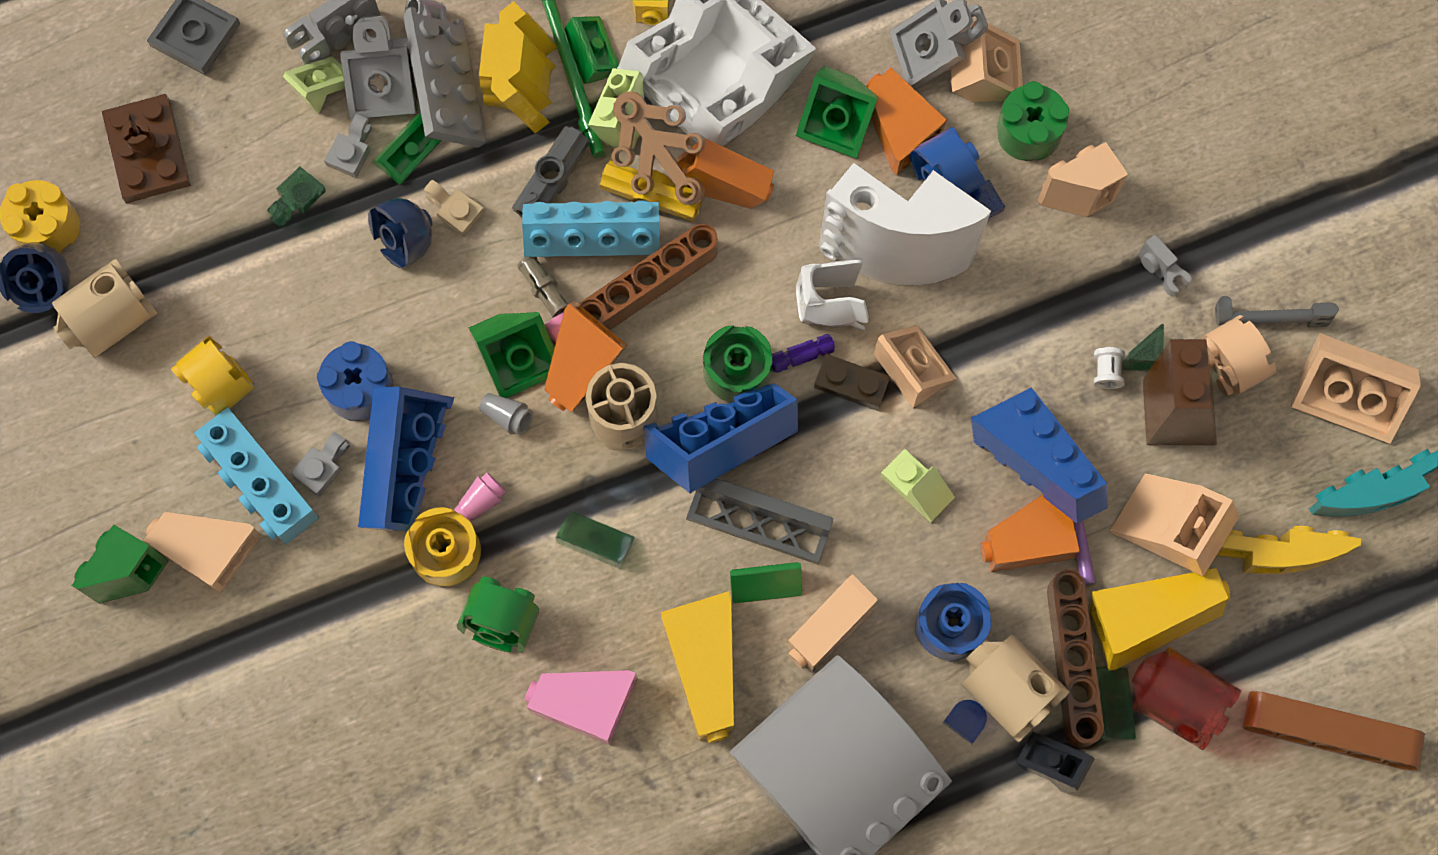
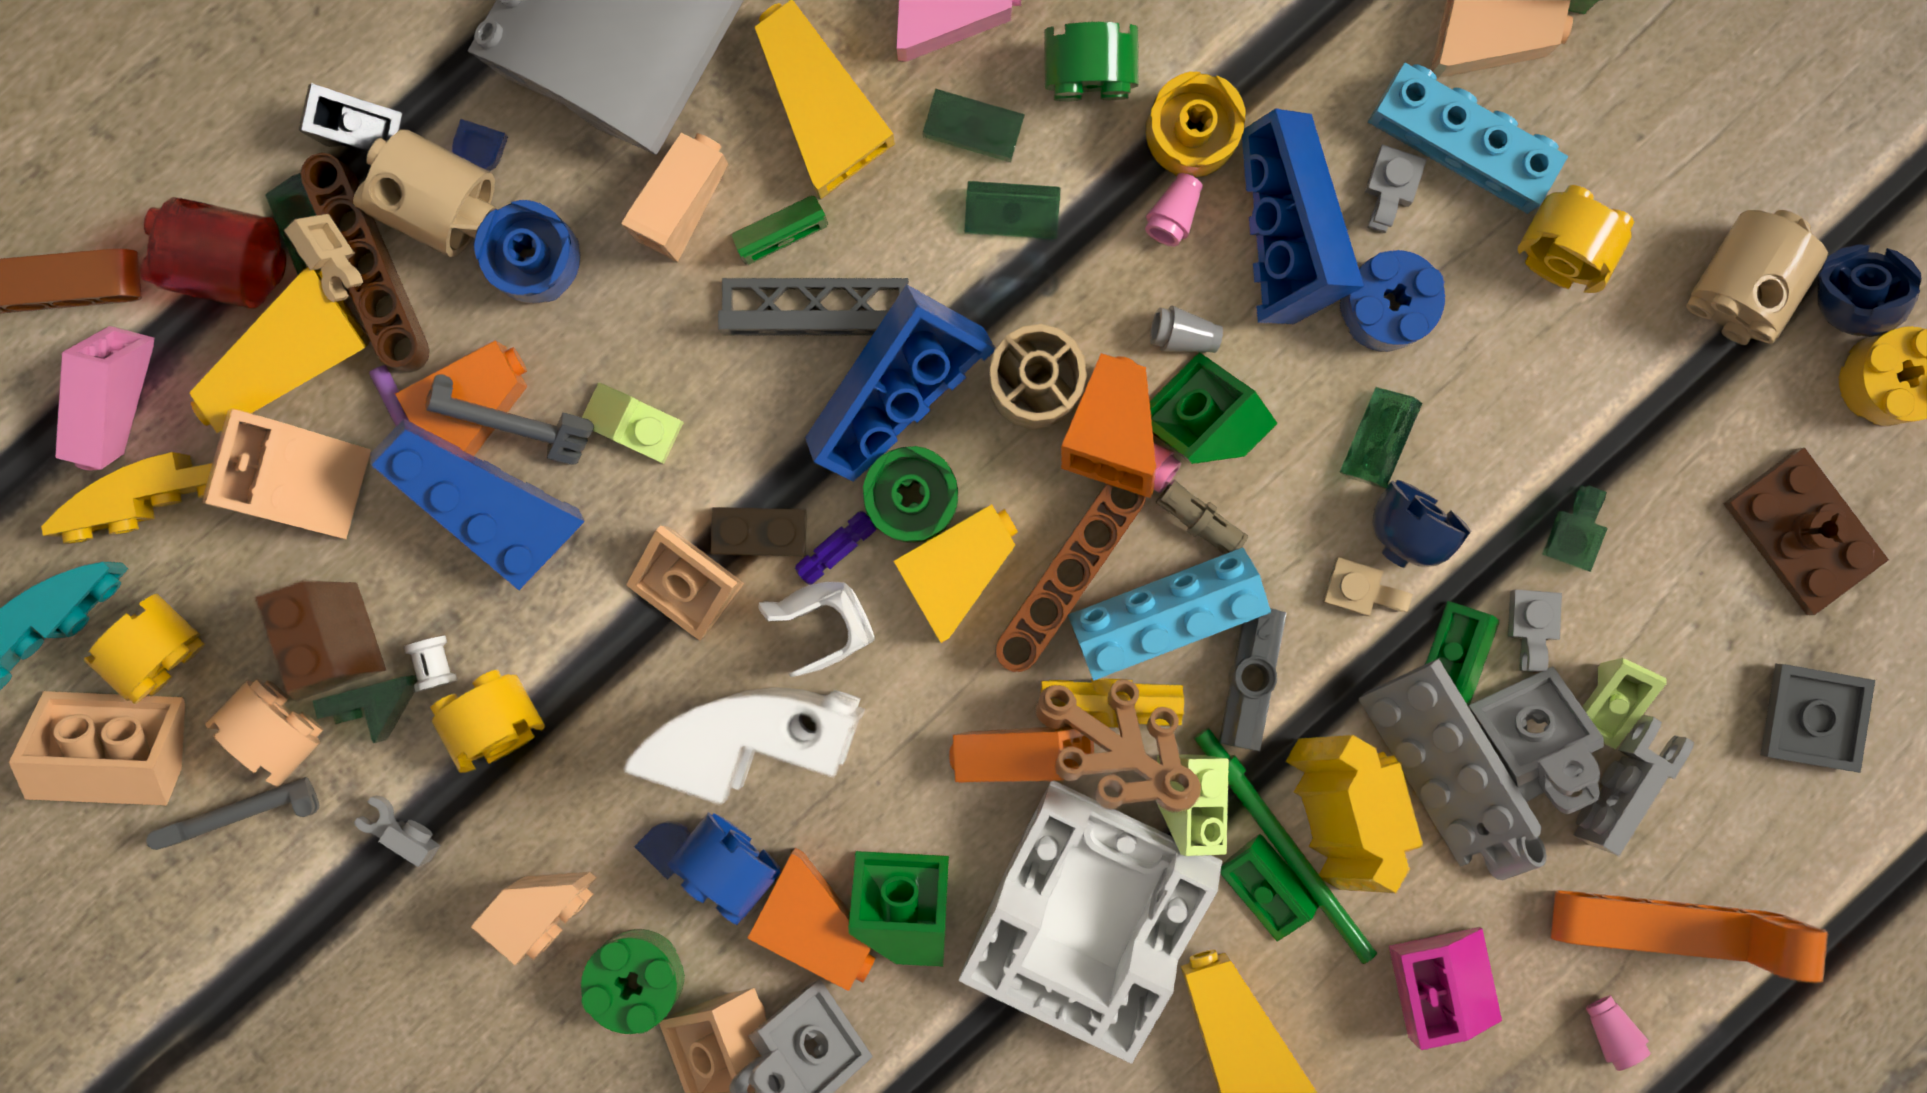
camera: 160 degrees right, 15 degrees up
(401, 297) = (1381, 437): none -> clear green plate
(599, 610) = (973, 125): none -> clear green plate
(725, 302) = (957, 566): none -> yellow slope
(971, 484) = (564, 440): none -> dark grey hinge
(1080, 311) = (486, 720): none -> yellow brick
(1101, 662) = (326, 249): none -> tan plate
(1294, 628) = (100, 396): none -> bright pink slope
(1307, 437) = (142, 648): none -> yellow brick

